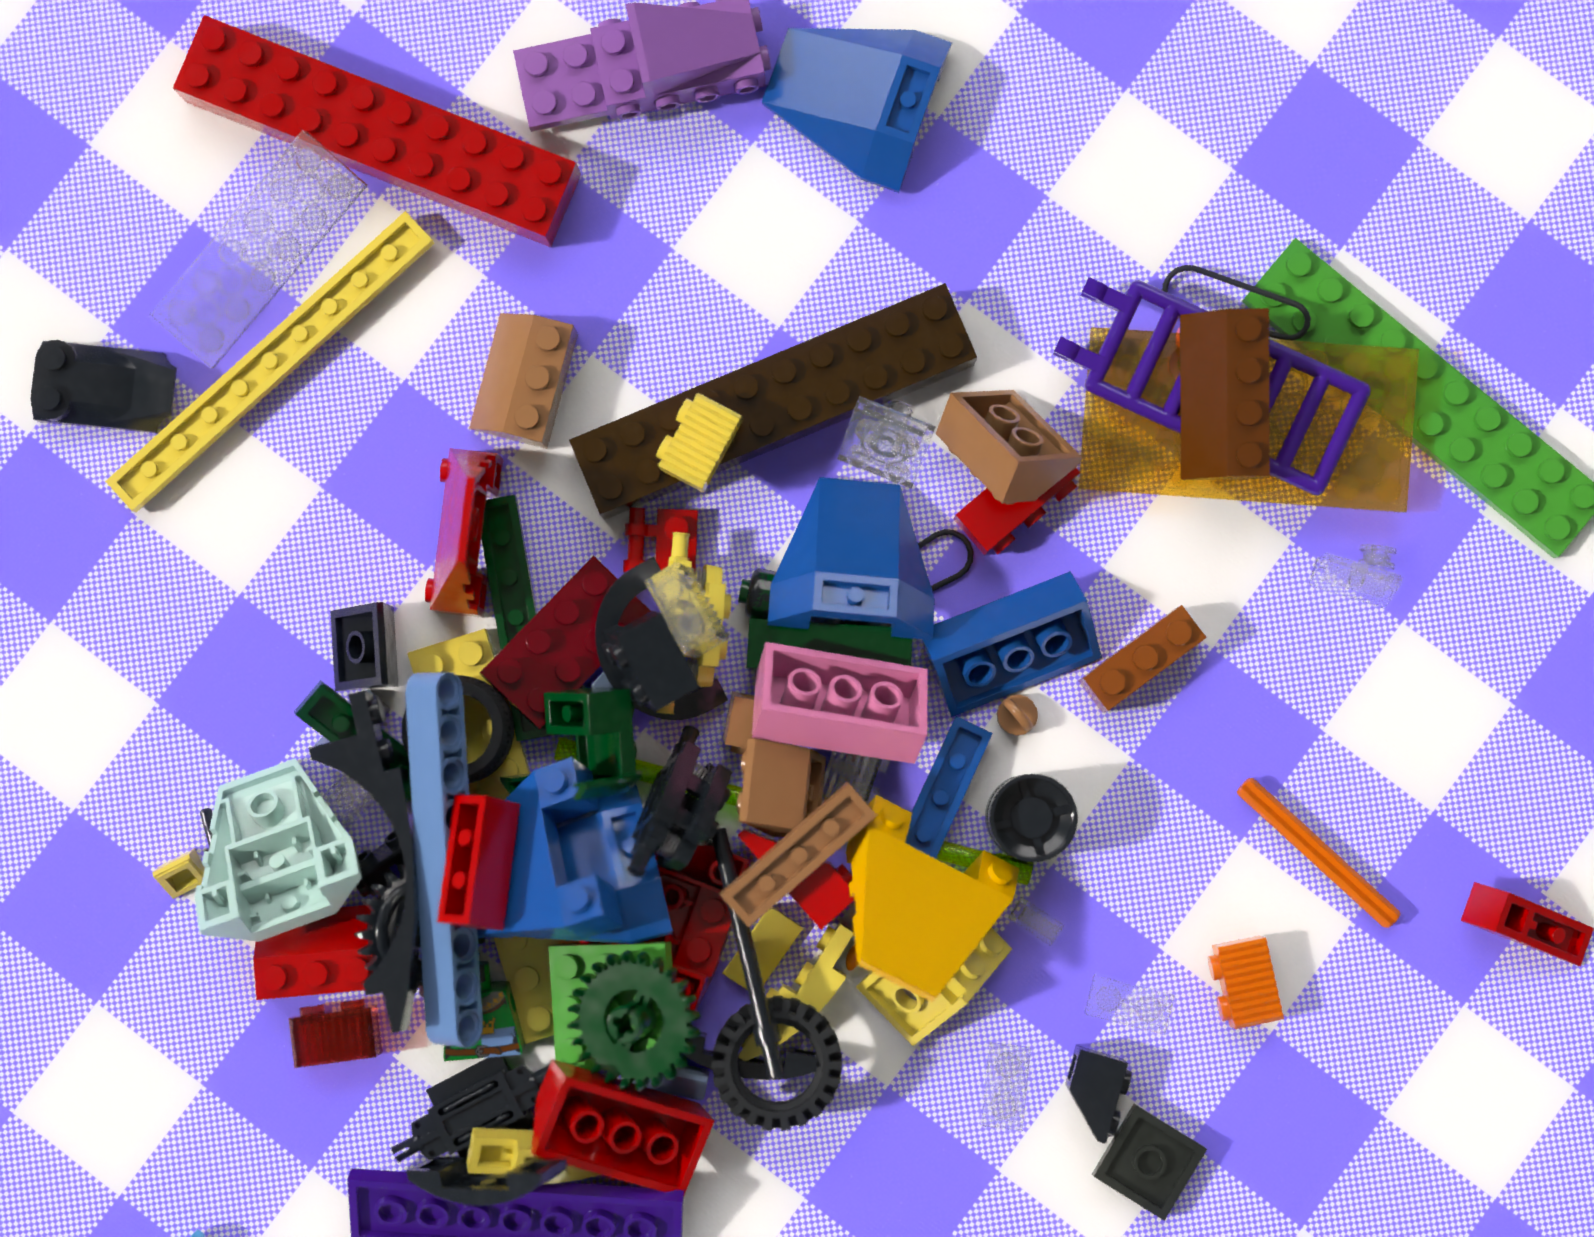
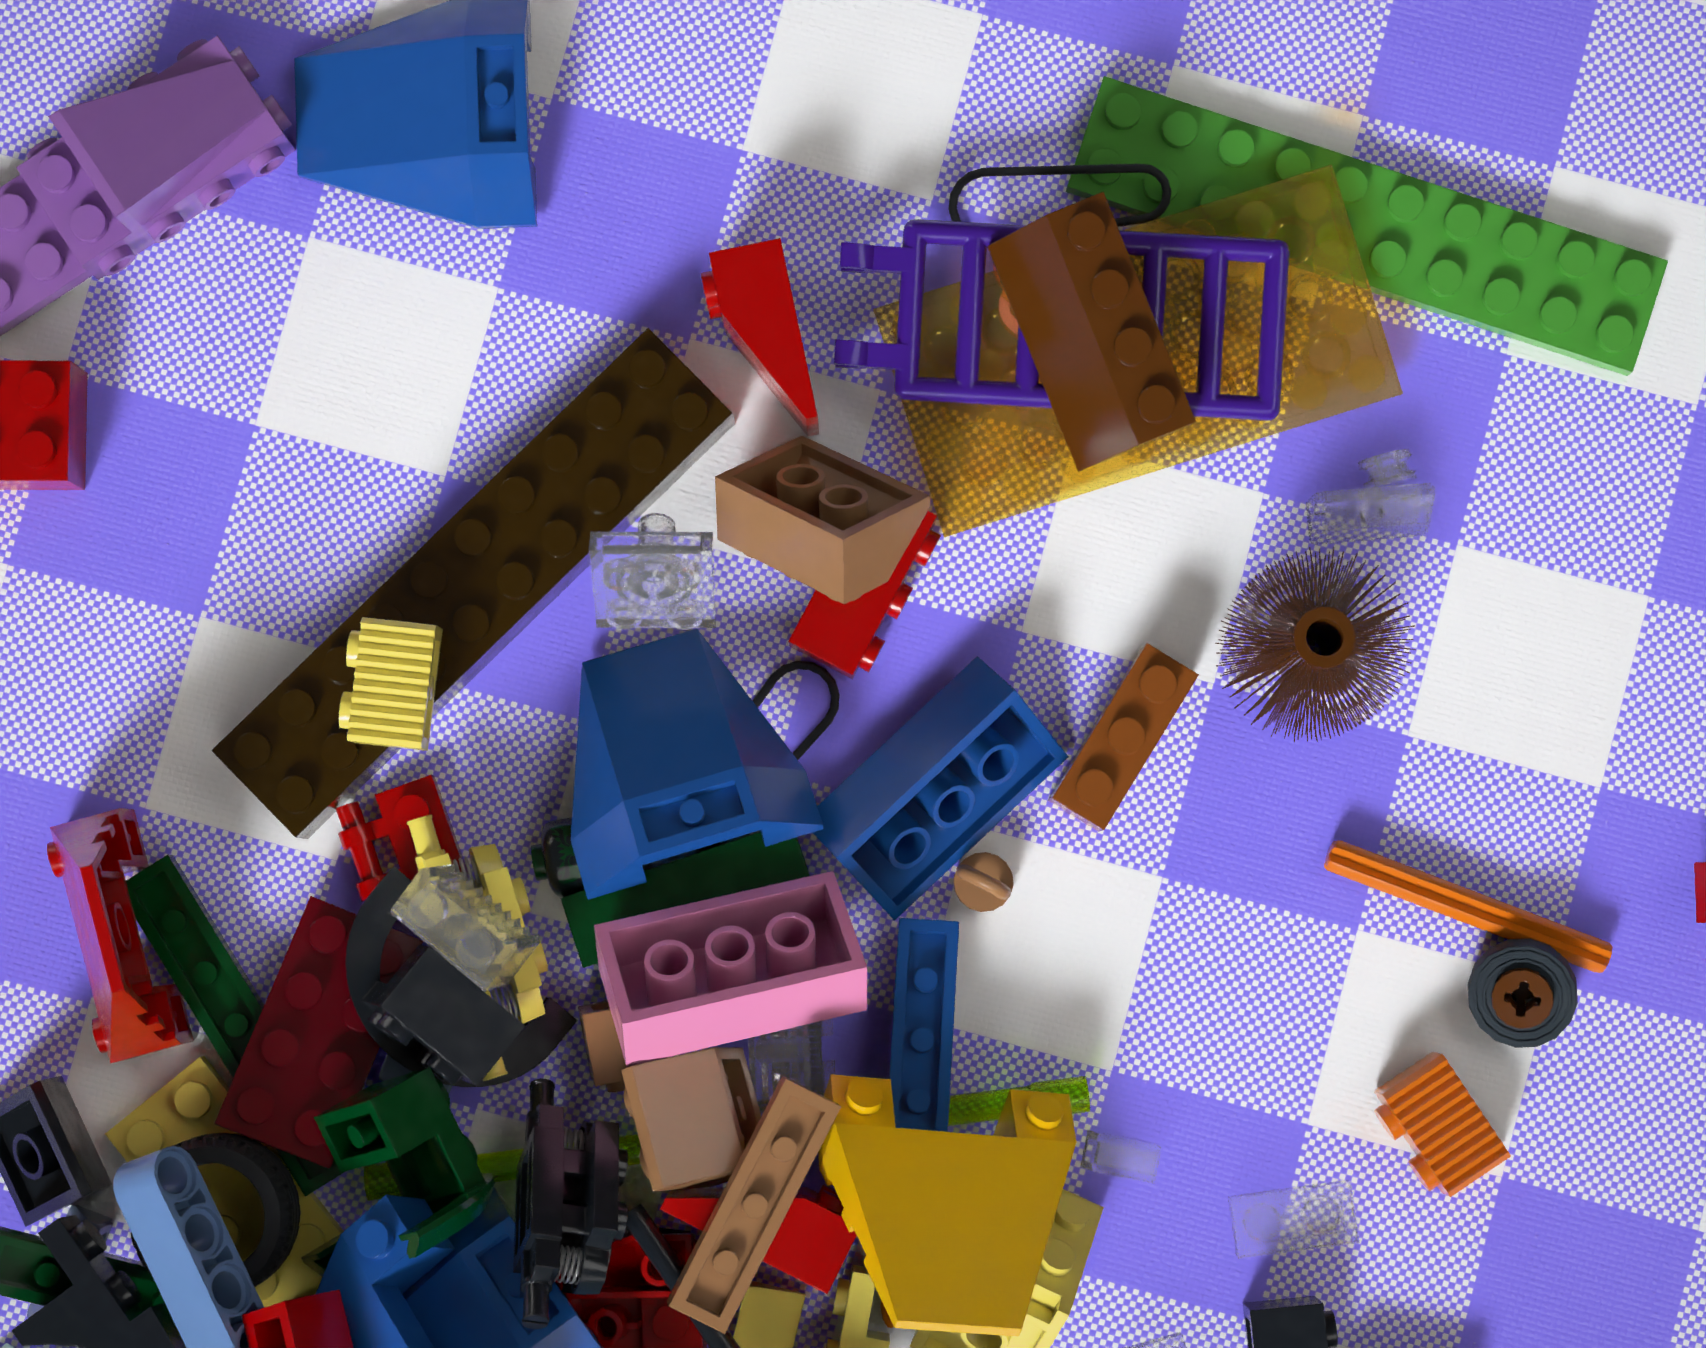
camera: 30 degrees left, 0 degrees up
(524, 378) = (119, 687): medium nougat slope -> none
(1017, 307) = (759, 316): none -> red slope
(1031, 817) = (1057, 1019): black wheel -> none
(1301, 646) = (1330, 629): none -> reddish brown piece
(1339, 907) = (1524, 970): none -> black wheel

